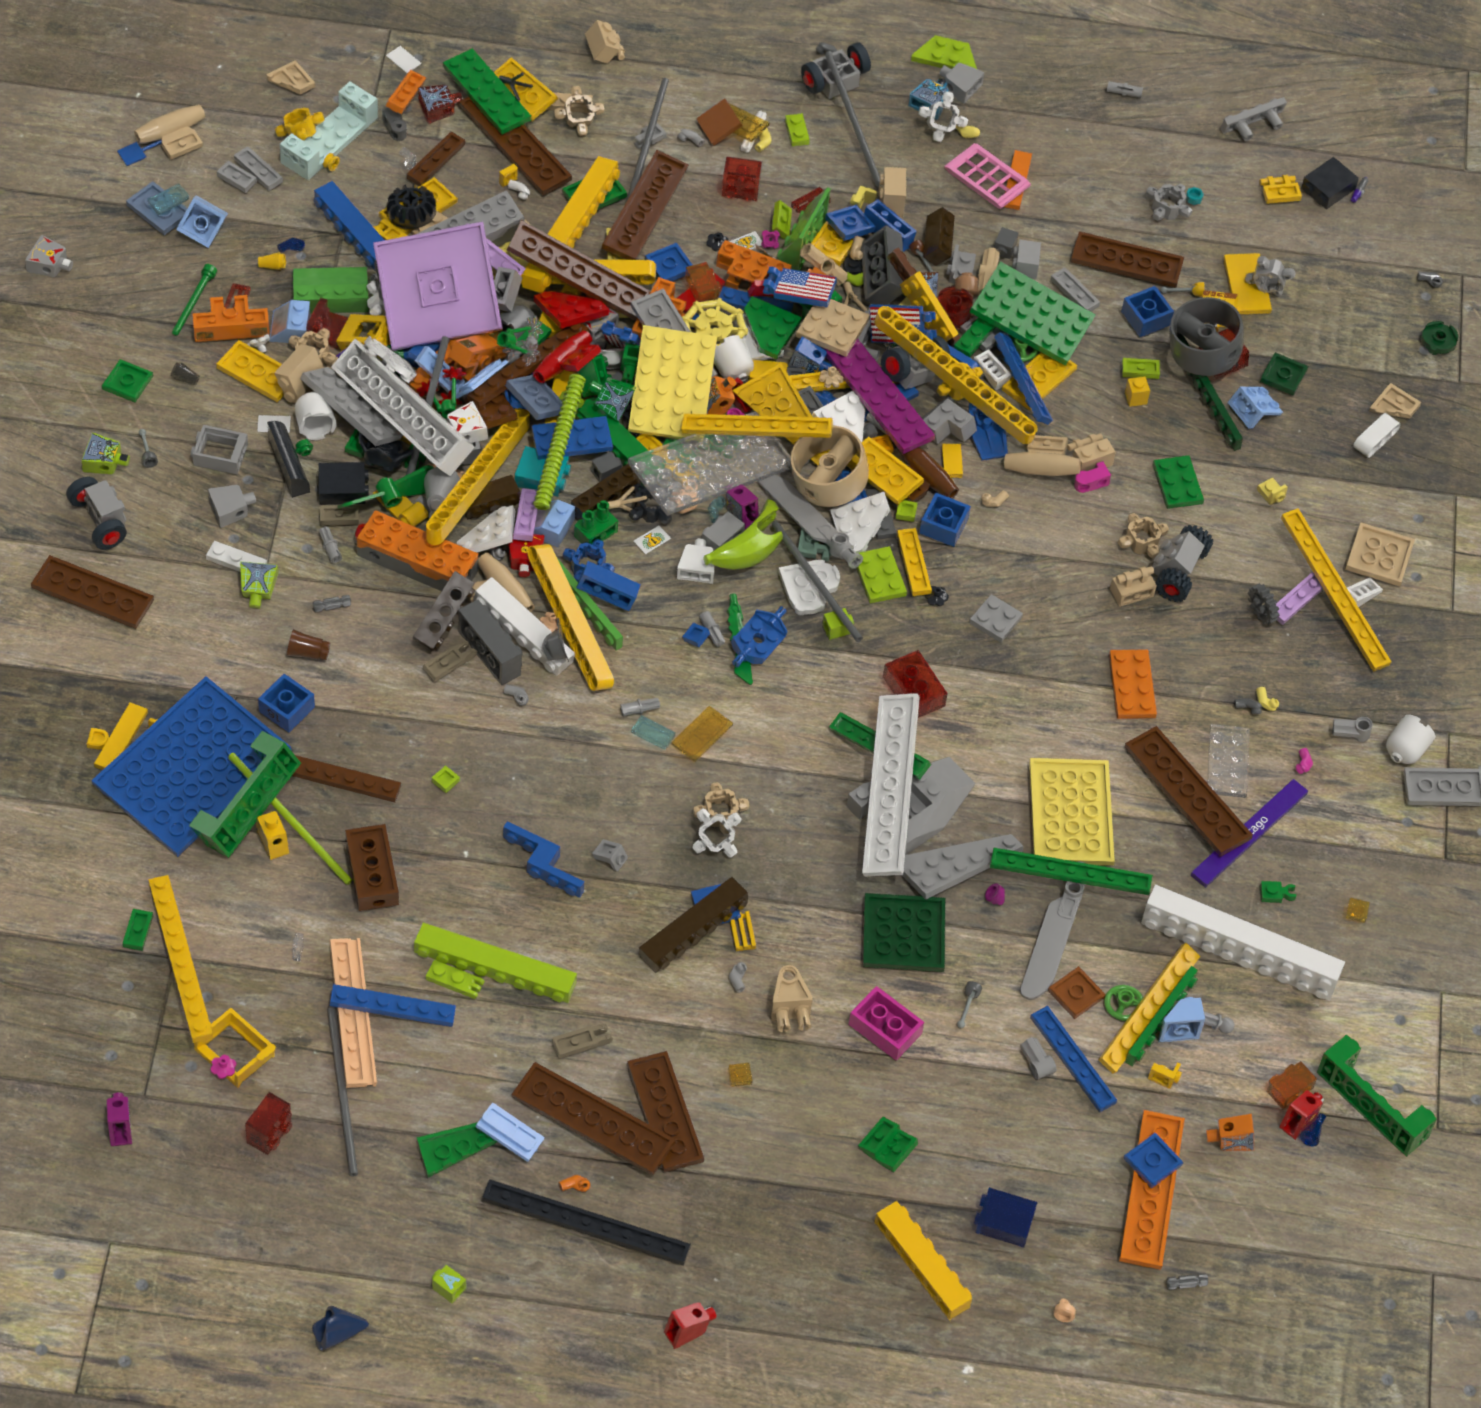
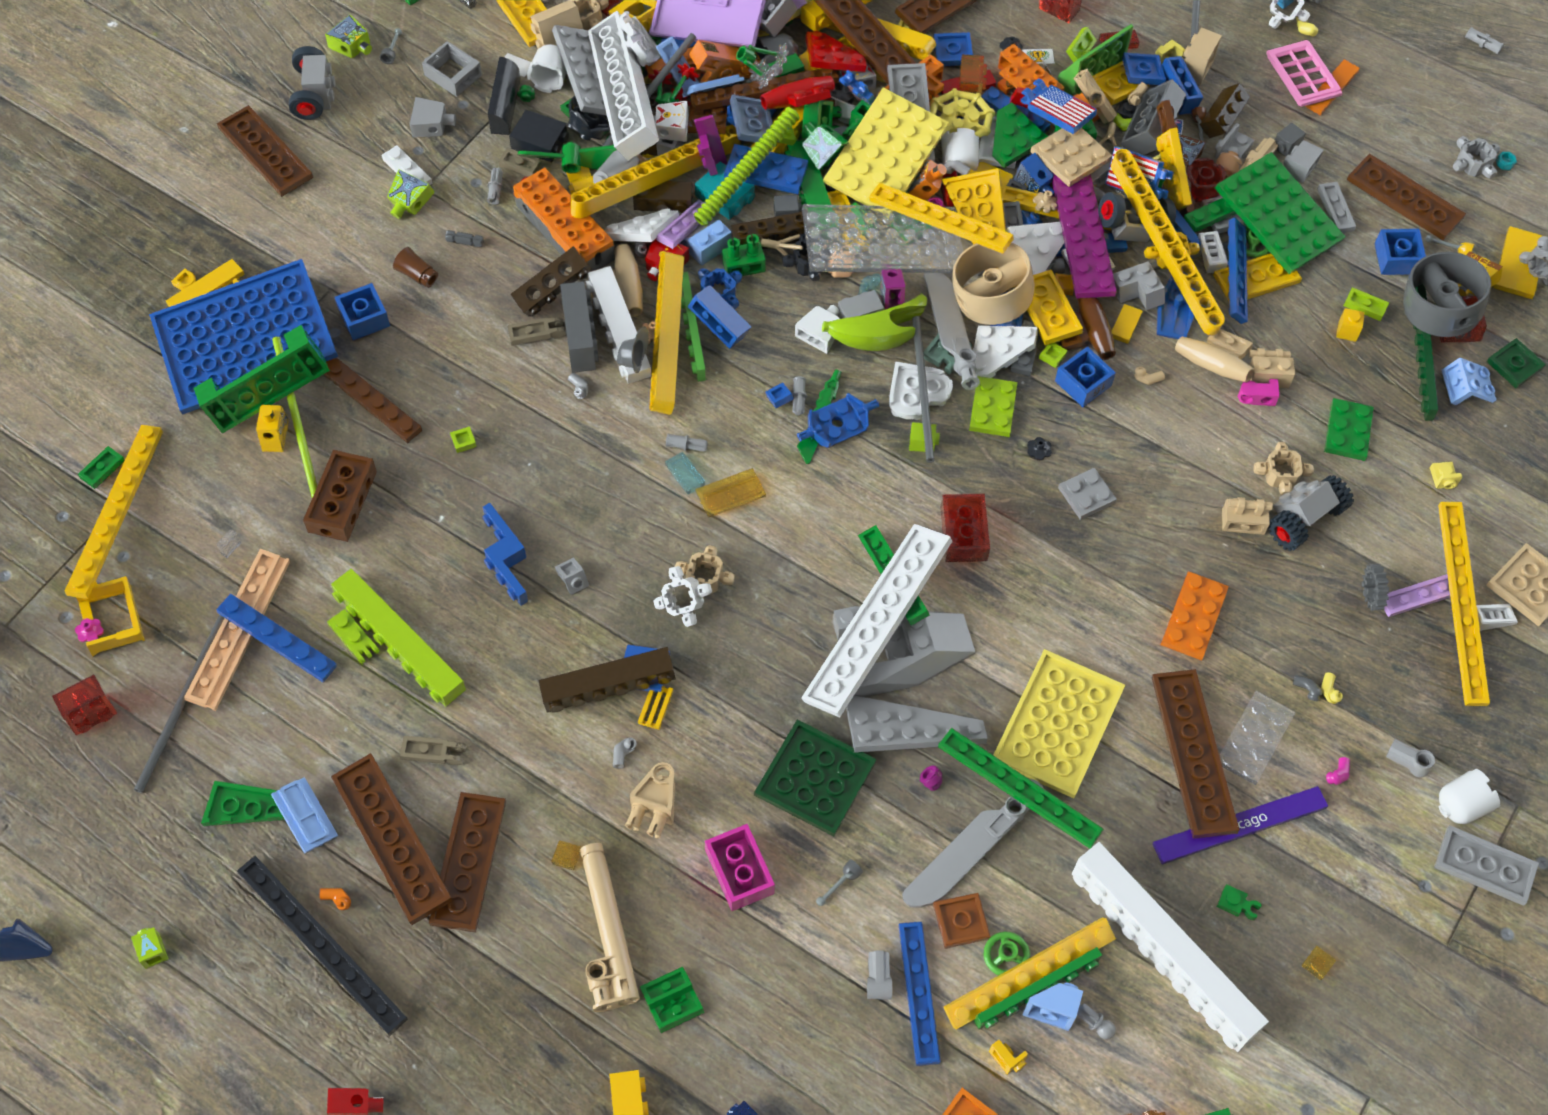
camera: 30 degrees right, 5 degrees up
(516, 434) = (710, 144): none -> magenta bracket
(652, 539) = (793, 291): white sticker -> none
(741, 373) = (957, 166): none -> light grey arm
(774, 235) = (1056, 59): dark pink plate -> none
(839, 1149) = (618, 978): none -> tan piece
(914, 562) = (1033, 407): yellow plate -> none

